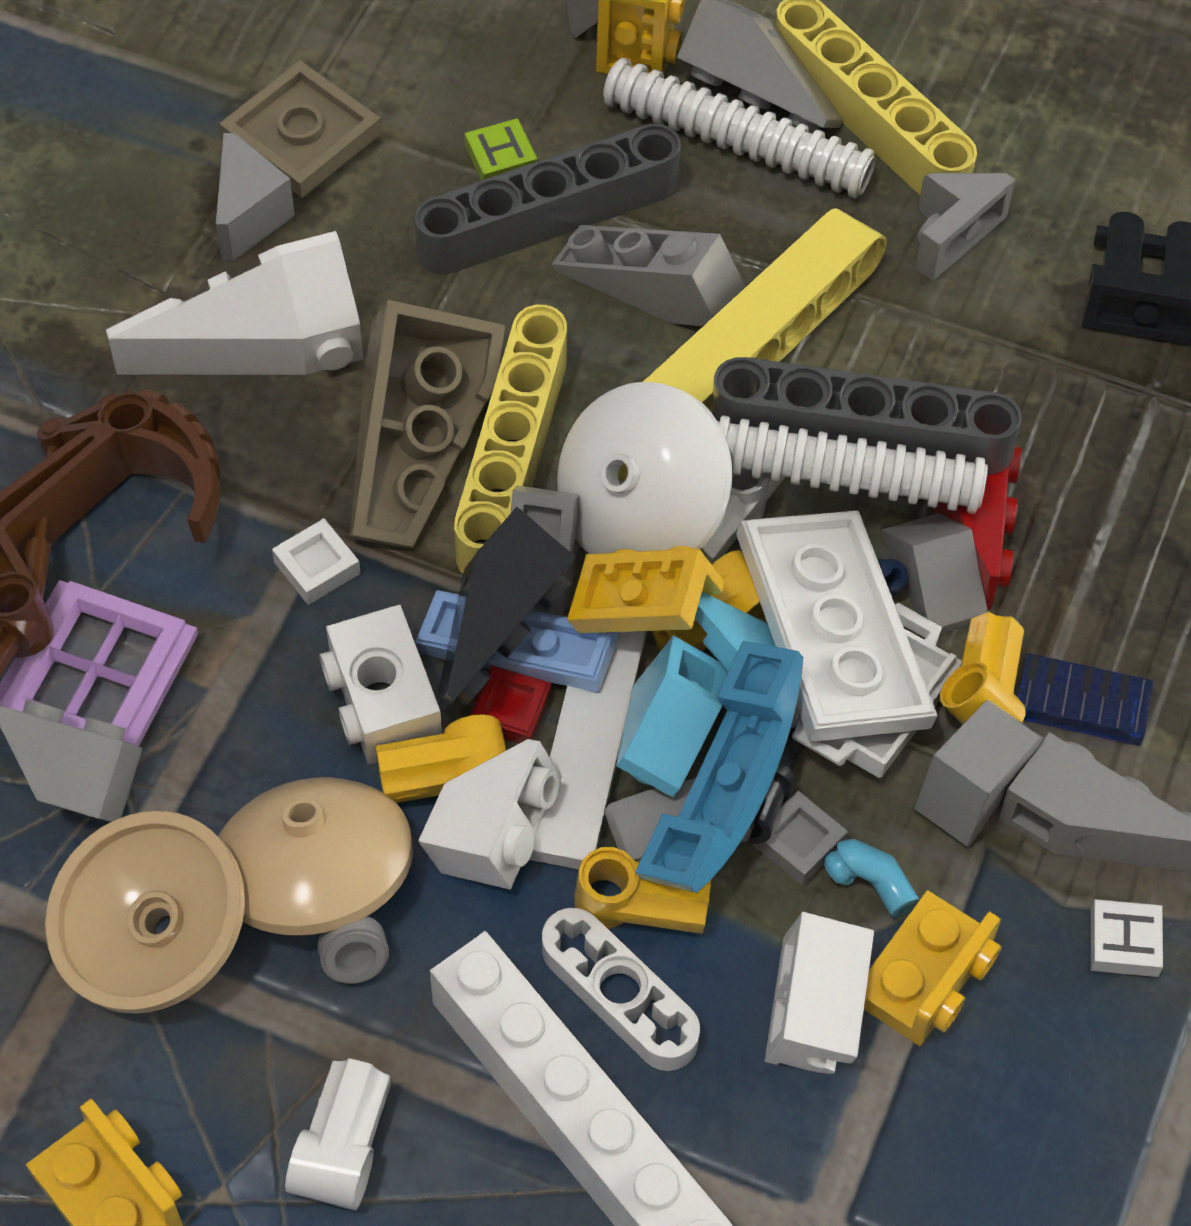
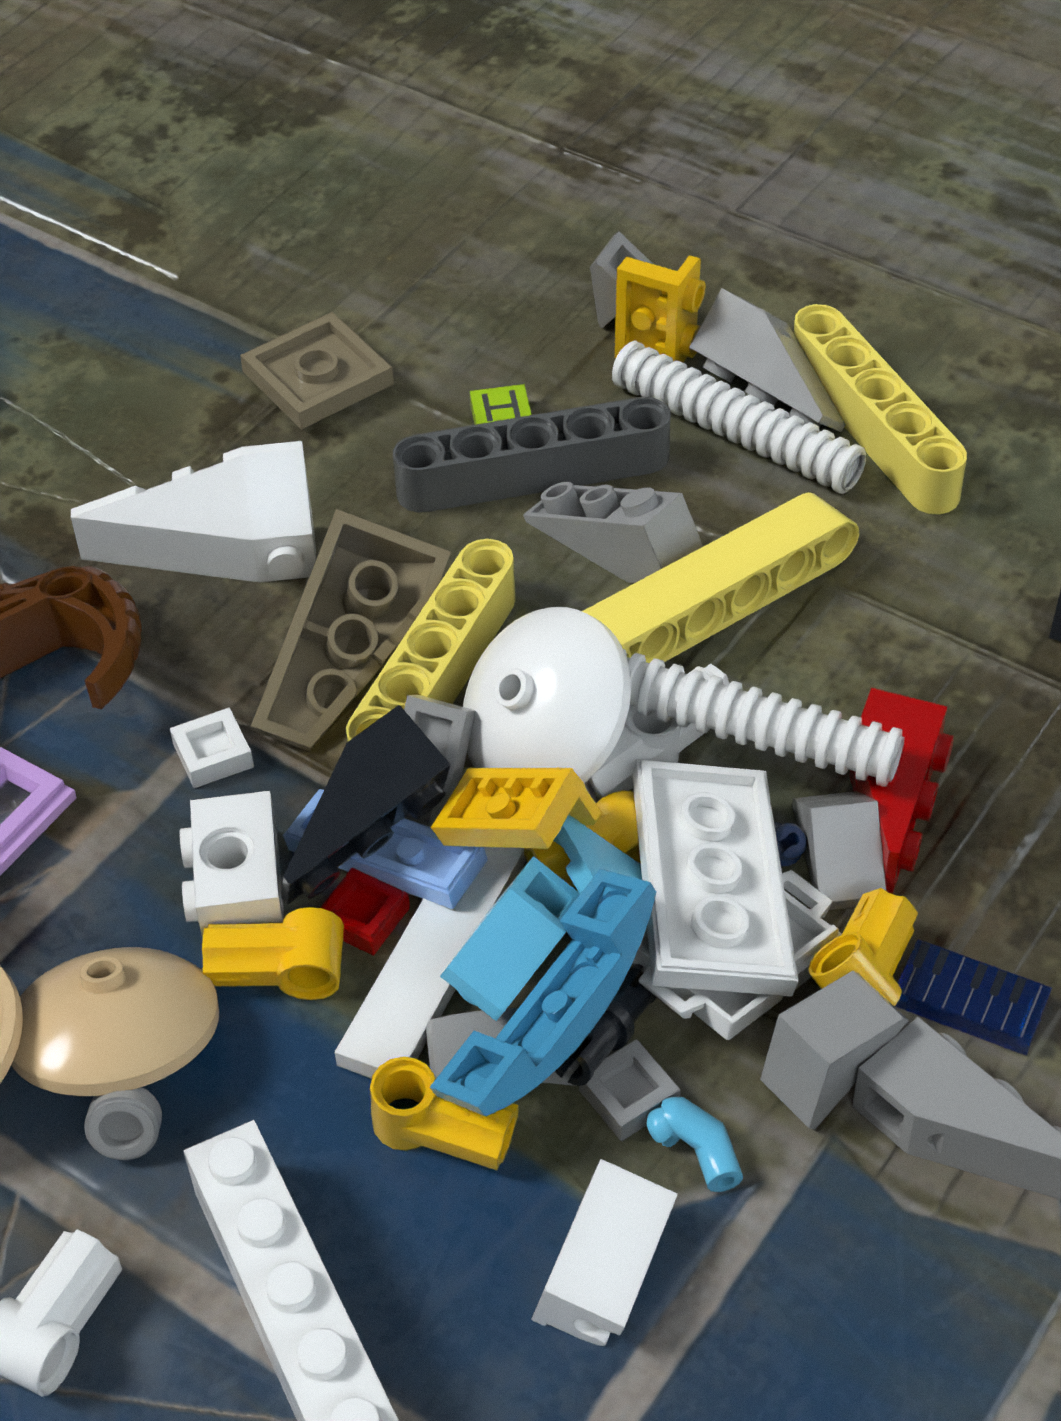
camera: 15 degrees right, 10 degrees down
(251, 198) = (246, 414): light grey slope -> none
(490, 816) = (304, 1009): white slope -> none
(666, 1011) = (394, 1244): white beam -> none
(892, 408) = (797, 668): dark grey beam -> none
(926, 966) = (733, 1247): yellow bracket -> none
(959, 214) = (939, 518): light grey slope -> none
(1126, 938) = (967, 1255): white tile -> none

